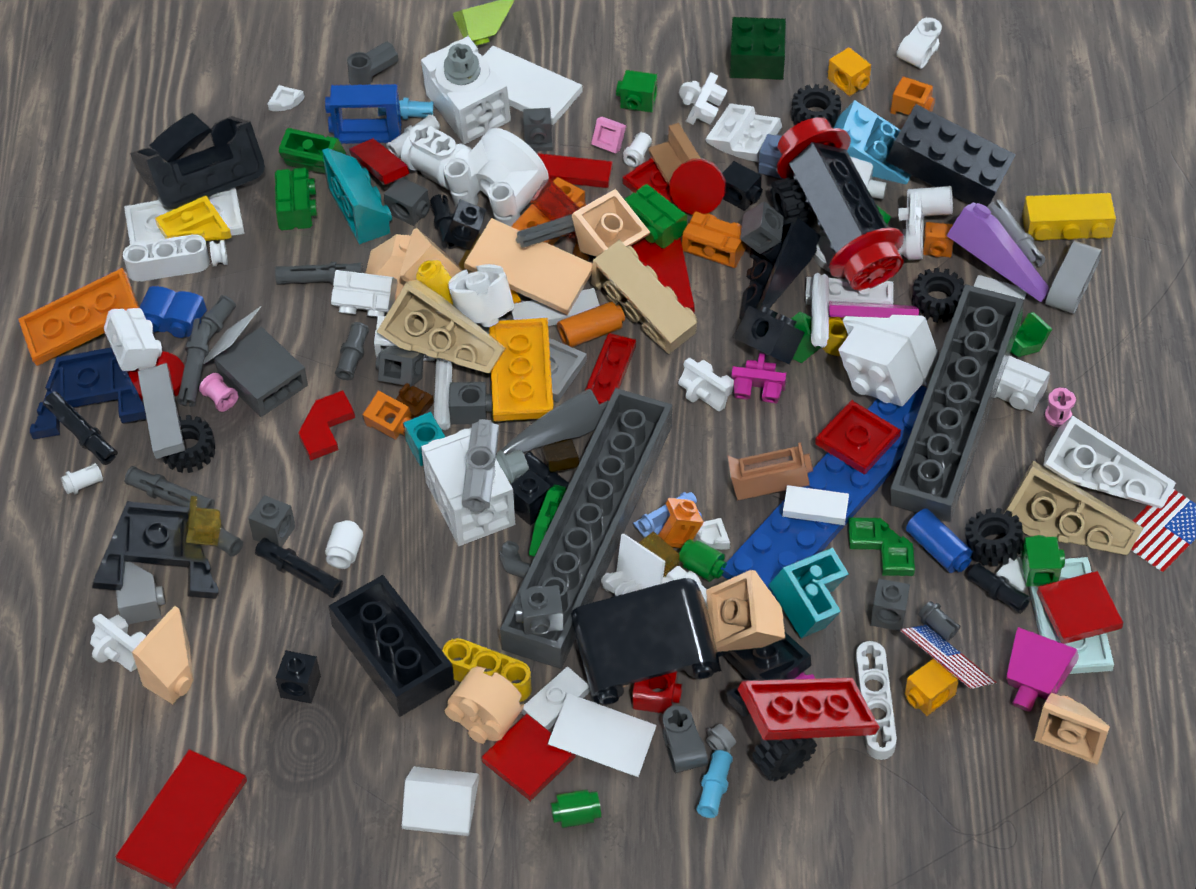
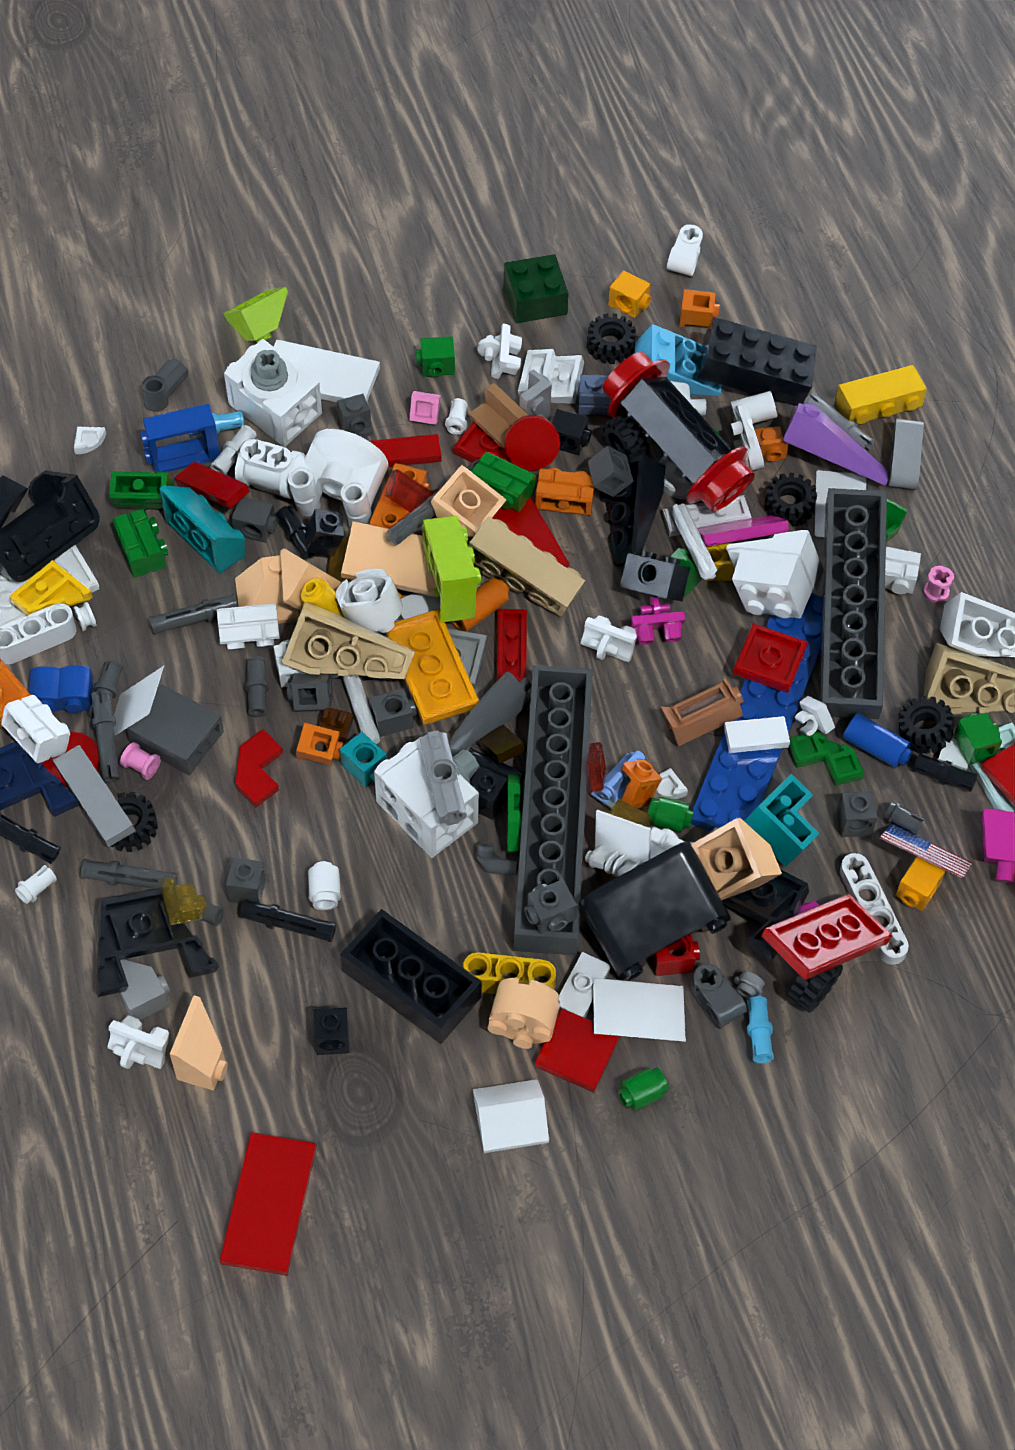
camera: 20 degrees left, 5 degrees up
(567, 280) = (452, 567): none -> lime wedge
(643, 496) = (596, 766): none -> clear red tile
(716, 145) = (538, 396): none -> light grey bracket
(884, 502) = (816, 716): none -> white tile

